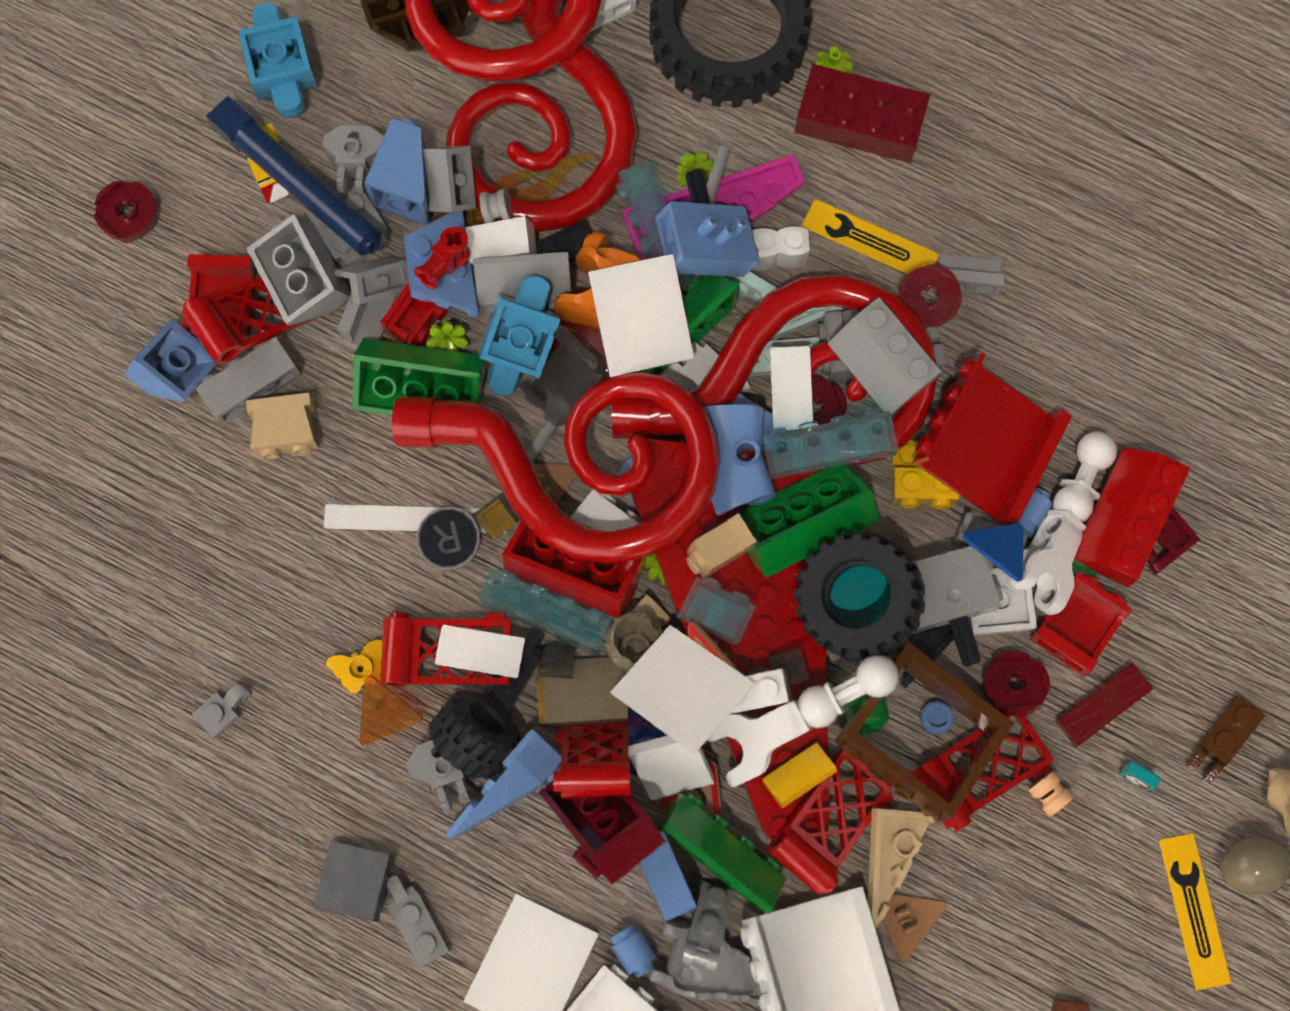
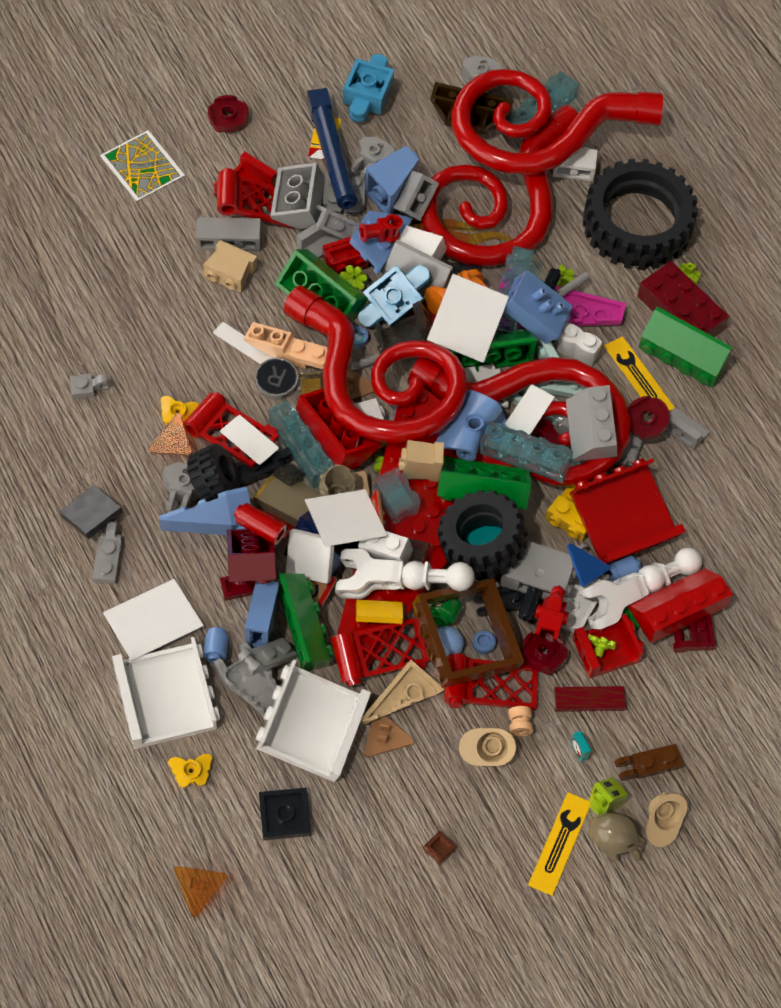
camera: 30 degrees right, 15 degrees down
(67, 353) = (142, 165): none -> sticker
(171, 364) = (193, 198): medium blue slope -> none
(432, 490) = (282, 345): none -> light nougat slope
(495, 205) = (431, 222): light grey wheel -> none
(509, 409) = (361, 337): none -> medium blue tile
(900, 746) = (451, 640): none -> light blue hair
(906, 170) = (685, 347): none -> green slope
(1002, 639) = (552, 612): none -> red hinge
(1042, 857) = (487, 747): none -> tan piece
(1076, 630) = (601, 645): none -> lime plant
(1217, 822) = (607, 796): none -> lime slope

